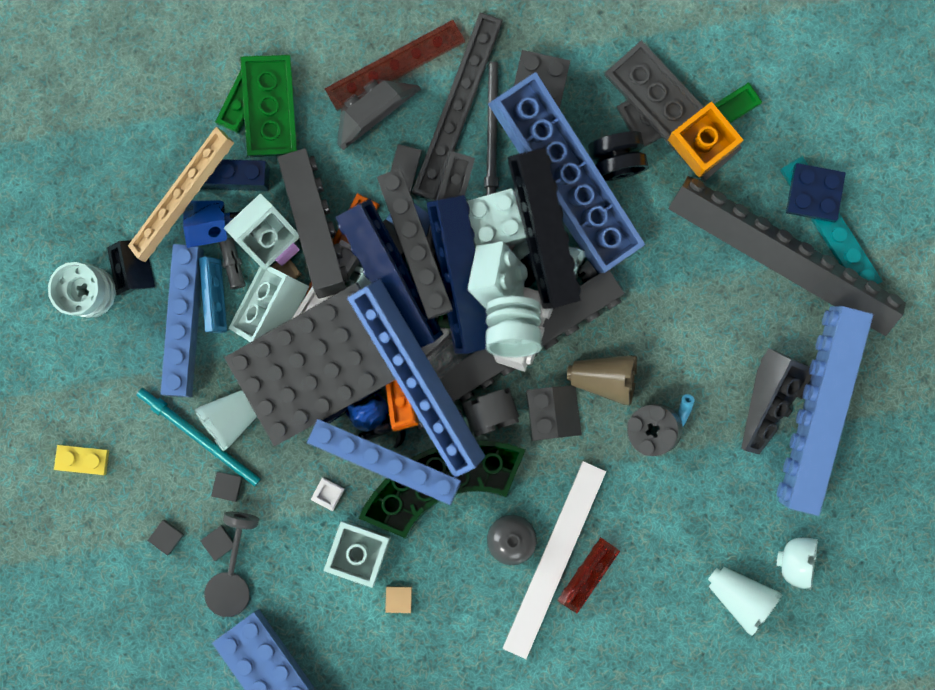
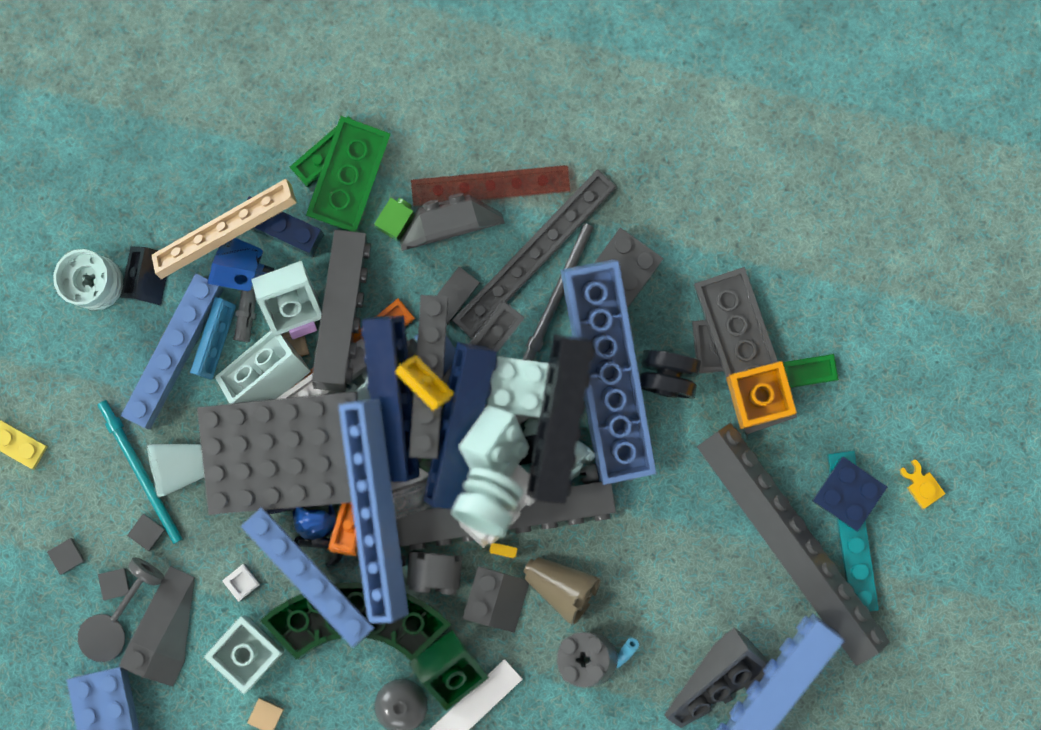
camera: 20 degrees right, 0 degrees up
(278, 570) = (161, 636): none -> dark grey wedge
(324, 126) = (394, 218): none -> bright green brick
(413, 247) = (424, 382): none -> yellow plate
(540, 490) = (448, 670): none -> dark green brick
(541, 368) = (503, 550): none -> yellow tile
(873, 162) = (923, 487): none -> yellow plate

